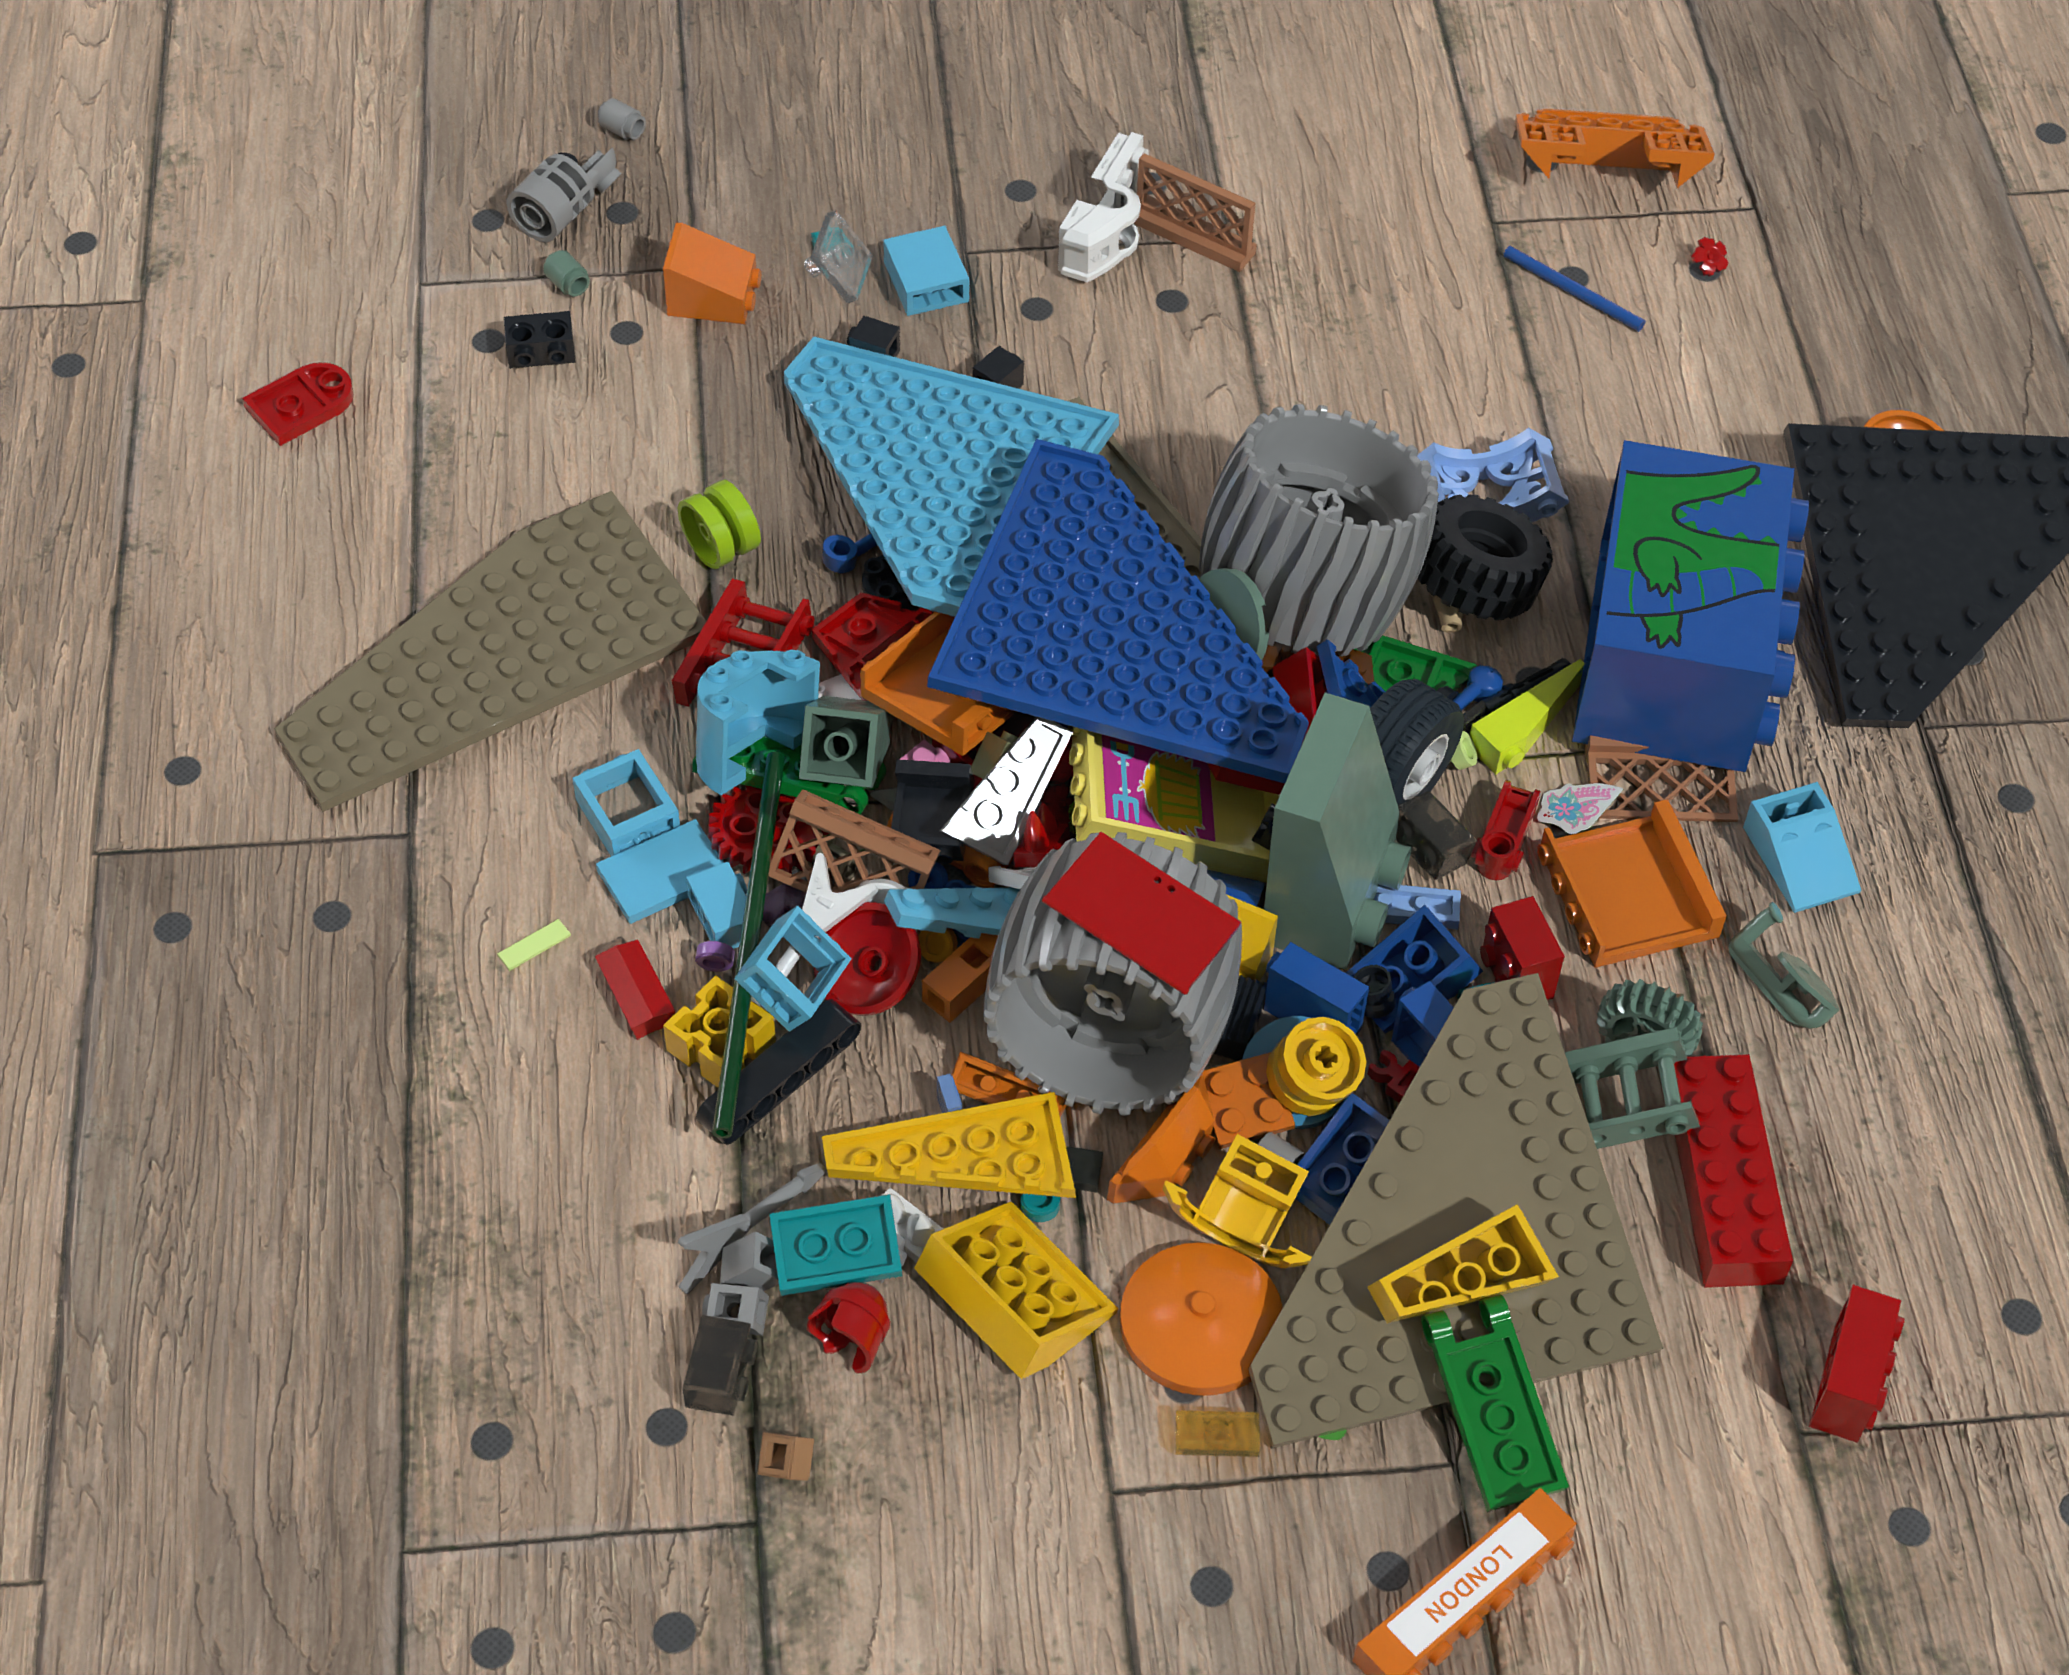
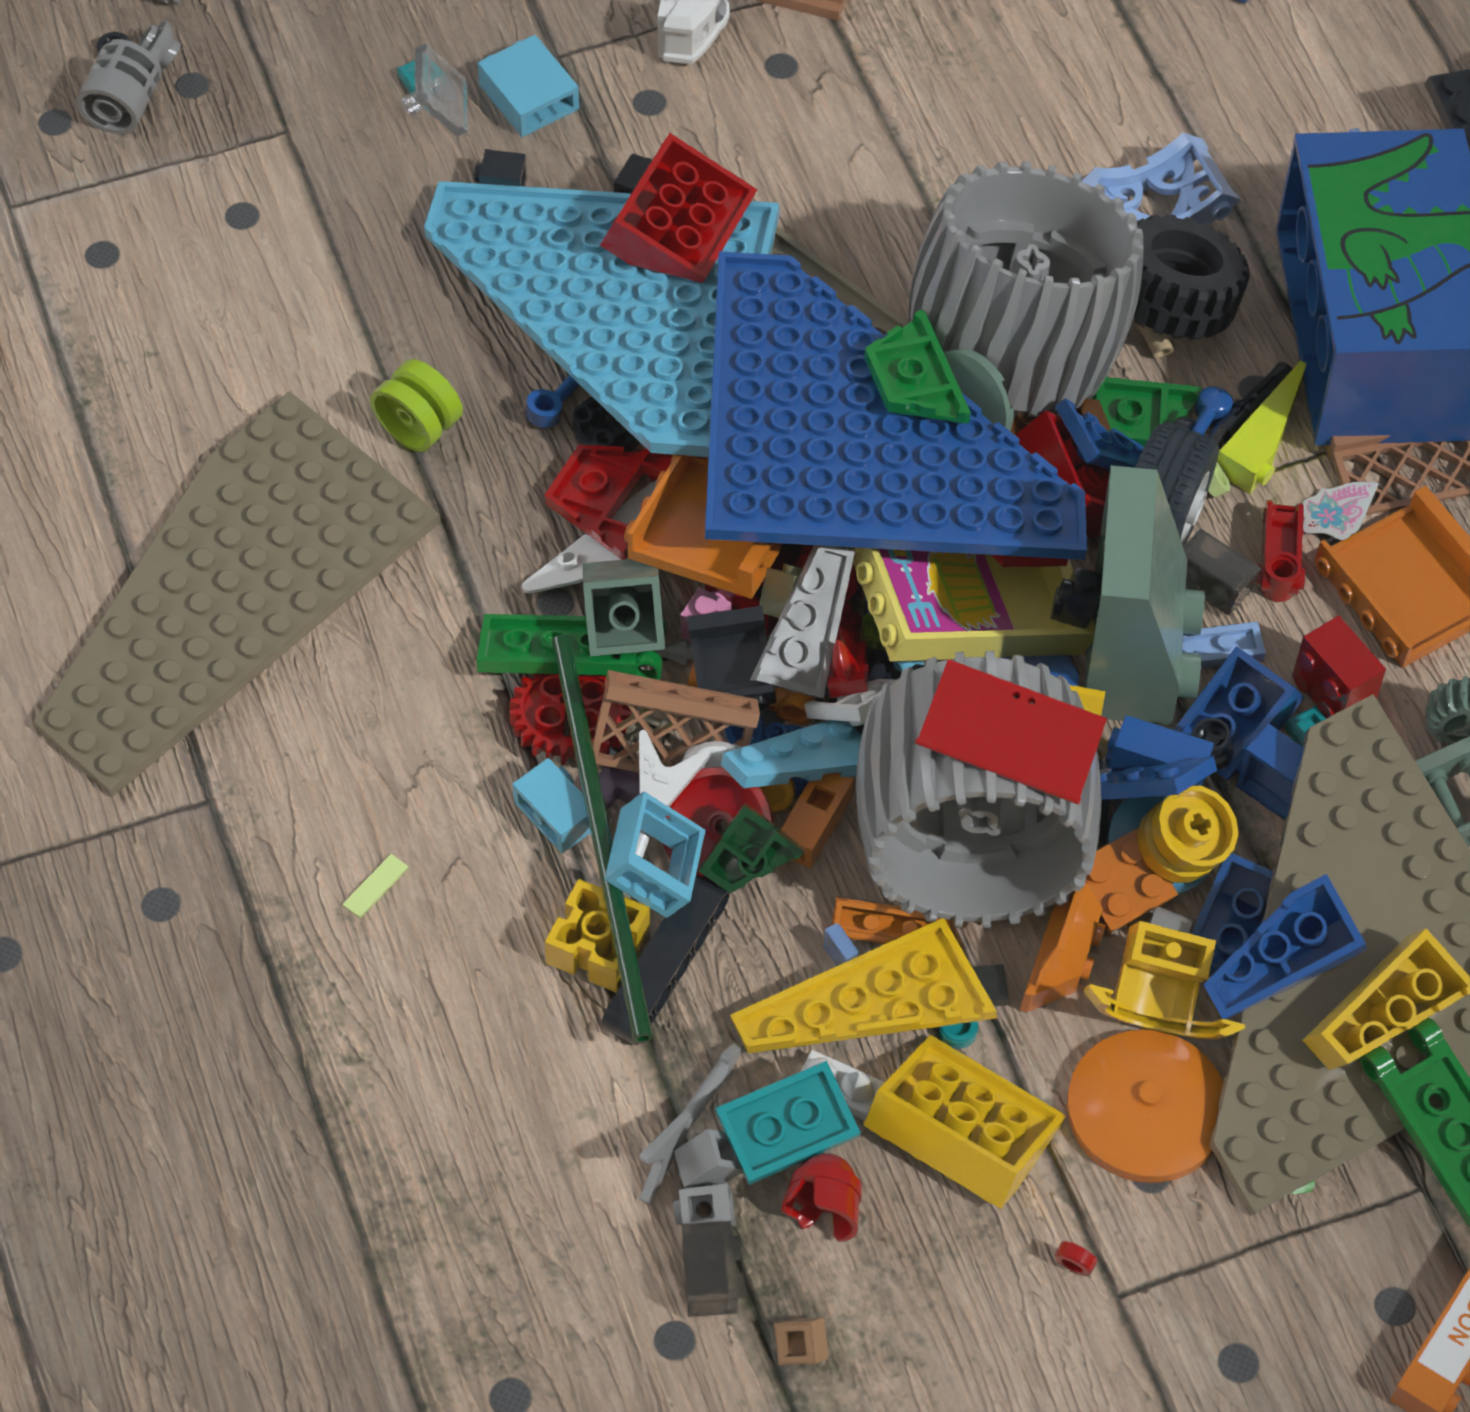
camera: 15 degrees left, 5 degrees up
(539, 339) = (159, 243): black brick -> none
(566, 273) = (161, 165): sand green brick -> none
(627, 833) = (444, 744): medium azure window -> none
(636, 987) = (495, 907): red piece -> none
(656, 871) = (475, 780): medium azure tile -> none
(708, 277) = (313, 140): orange slope -> none
(714, 956) = (562, 856): medium lavender tile -> none
(722, 629) = (453, 515): red fence -> none
(746, 700) = (523, 580): medium azure cylinder -> none
(886, 987) = (748, 850): none -> dark green slope
(1015, 399) = (679, 213): none -> red slope
(1079, 1444) = (1075, 1258): none -> red tile
(1180, 581) = (915, 373): none -> green wing
(1217, 1433) = (1199, 1215): clear yellow plate -> none
(1300, 1006) = (1155, 779): none -> blue wing
(1383, 1192) = (1293, 945): none -> blue wedge
(1395, 1075) = (1264, 826): red plate -> none

